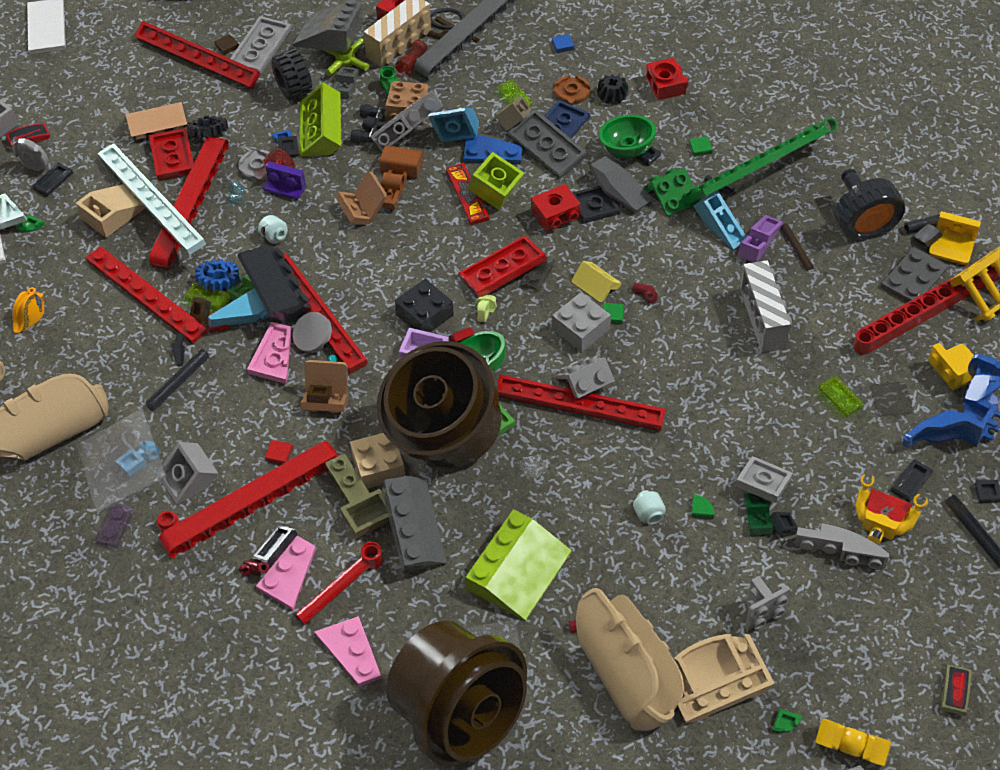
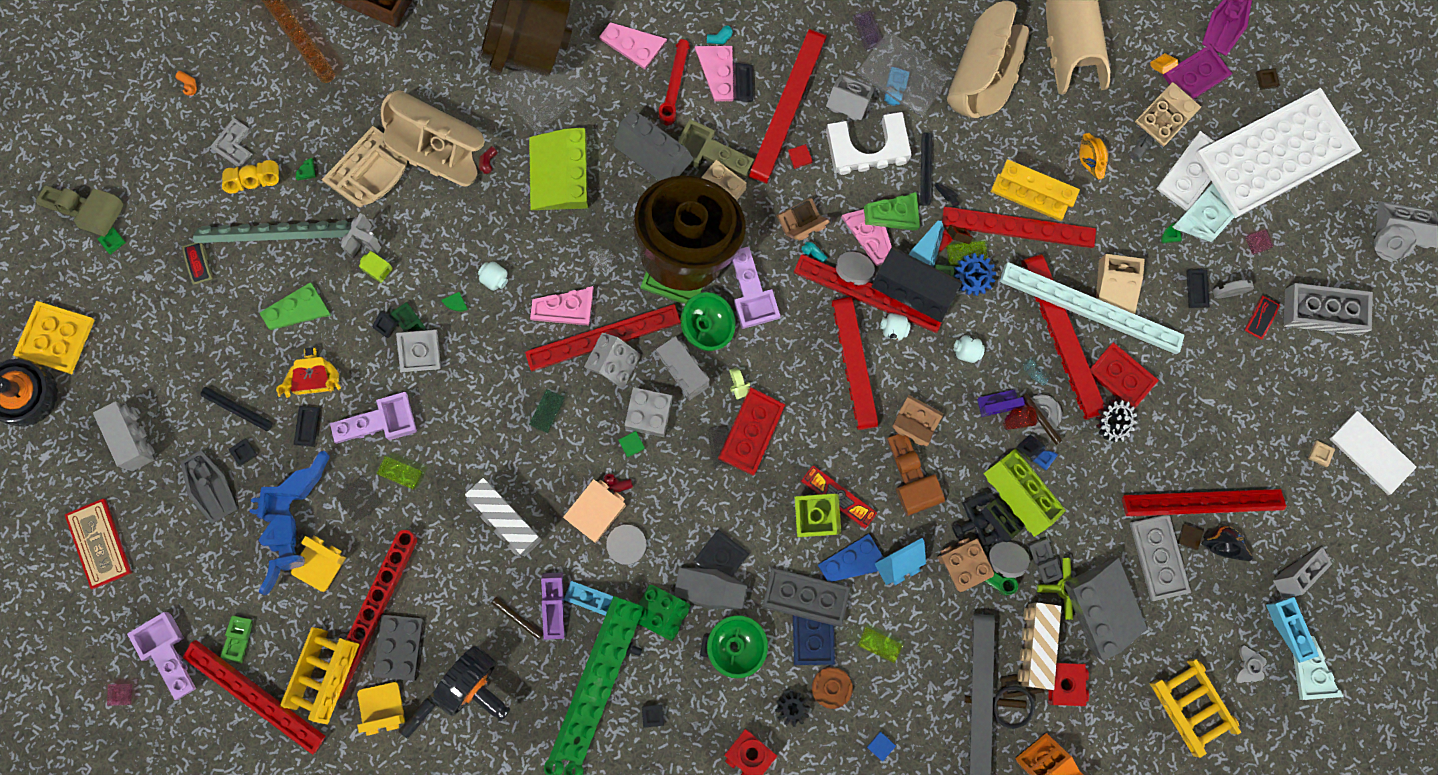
camera: 140 degrees right, 25 degrees up
(81, 42) = (1321, 453): none -> tan tile
(108, 297) = (1034, 190): none -> yellow fence
(156, 120) = (1170, 403): light nougat slope -> none
(166, 520) = (833, 55): red plate -> none
(191, 404) = (847, 158): none -> white arch
(204, 26) = (1229, 541): none -> black hat
(239, 352) = (894, 213): none -> bright green wing
(253, 567) = (745, 59): dark red arm -> none
(260, 602) = (722, 37): none -> teal arm
(262, 154) = (1042, 420): none -> dark brown bar
(291, 74) = (1090, 521): black tyre -> none
(317, 275) = (895, 326): none -> light aqua head
(354, 111) = (1002, 519): none -> black plate
(372, 88) = (1009, 559): none -> light grey tile
(373, 269) = (856, 367): none -> red beam
(406, 120) = (946, 532): light grey slope -> none
(408, 60) = (1006, 620): clear red piece -> none
(424, 307) = (784, 347): black brick -> none
(461, 334) = (737, 341): red tile -> none
(513, 113) = (859, 613): dark tan slope -> none
(526, 334) = (683, 367): none -> light grey wedge
(555, 207) = (736, 526): red brick -> none
(595, 281) = (665, 469): light yellow panel -> none
(598, 444) = (564, 308): none -> bright pink wing
(668, 248) = (626, 544): none -> light grey tile
(672, 373) = (547, 411): none -> clear green plate
(679, 279) = (595, 510): none -> light nougat brick
(700, 146) = (669, 689): green tile -> none
(725, 135) = (652, 716): none -> black plate
(767, 572) = (375, 266): none -> lime brick
(821, 438) = (393, 417): none -> lavender plate
(852, 547) = (324, 332): light grey slope -> none
(856, 672) = (264, 231): none -> sand green plate
(868, 589) = (295, 308): none -> bright green wing
(928, 235) = (406, 701): black tile -> none

